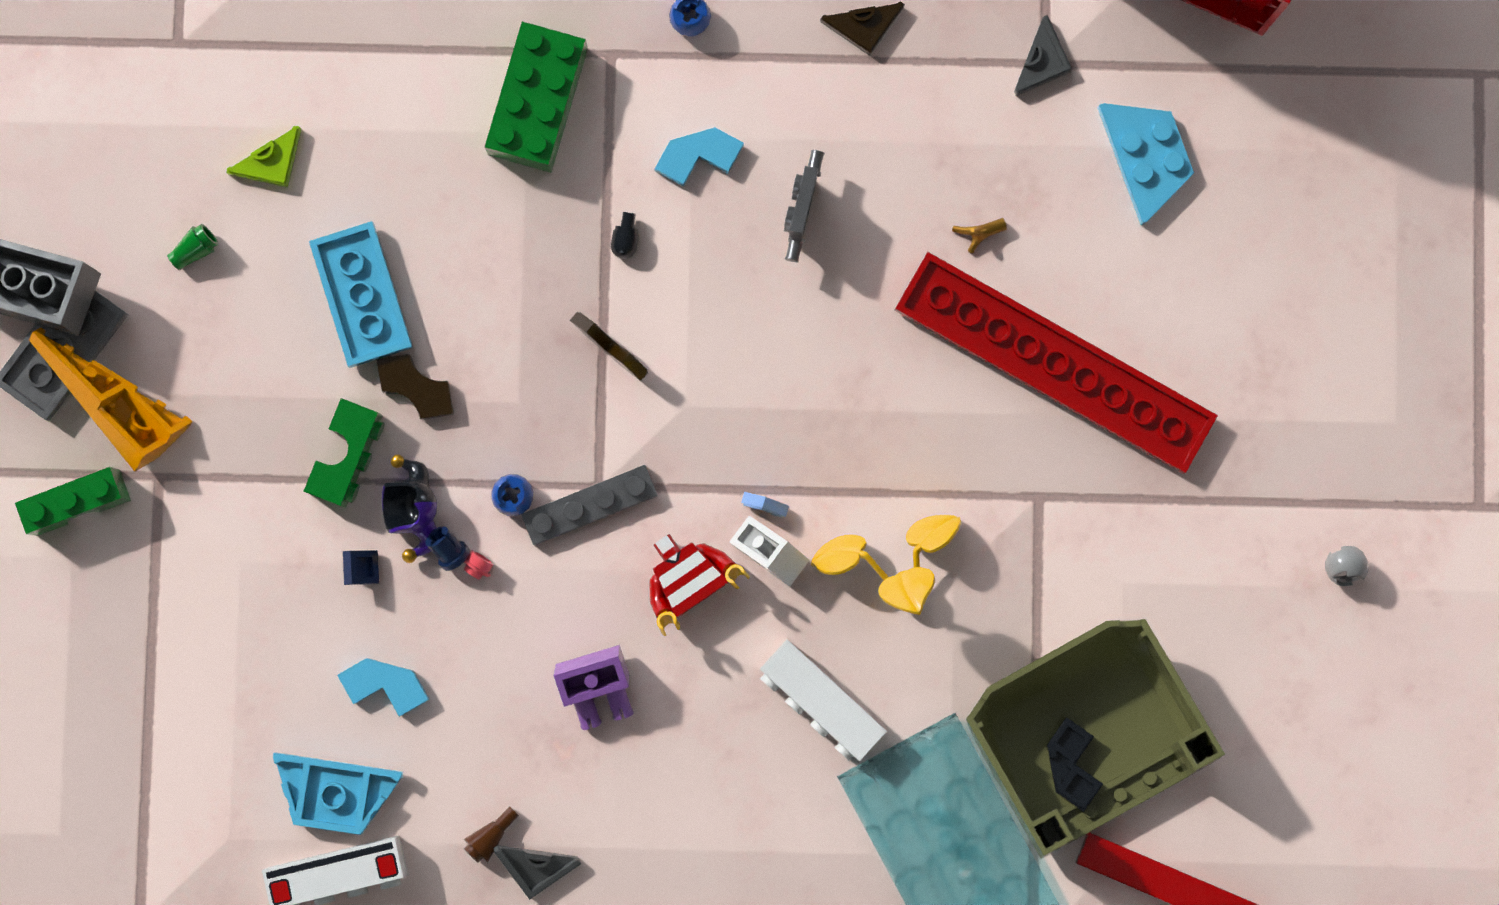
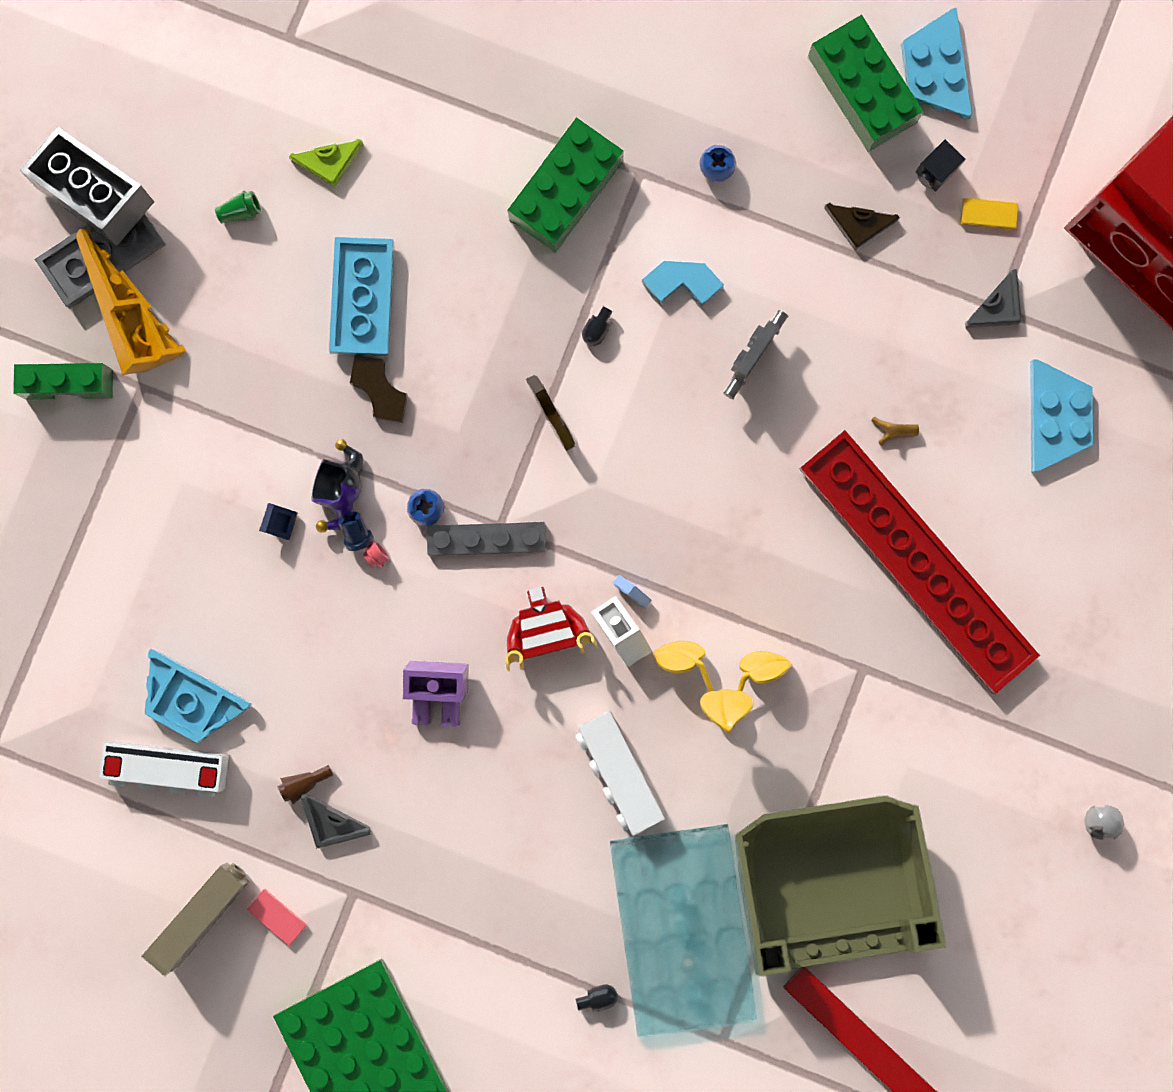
camera: 25 degrees right, 0 degrees up
(338, 481) = (286, 443): green arch -> none
(398, 682) = (275, 629): medium azure tile -> none
(1068, 778) = (803, 915): black tile -> none

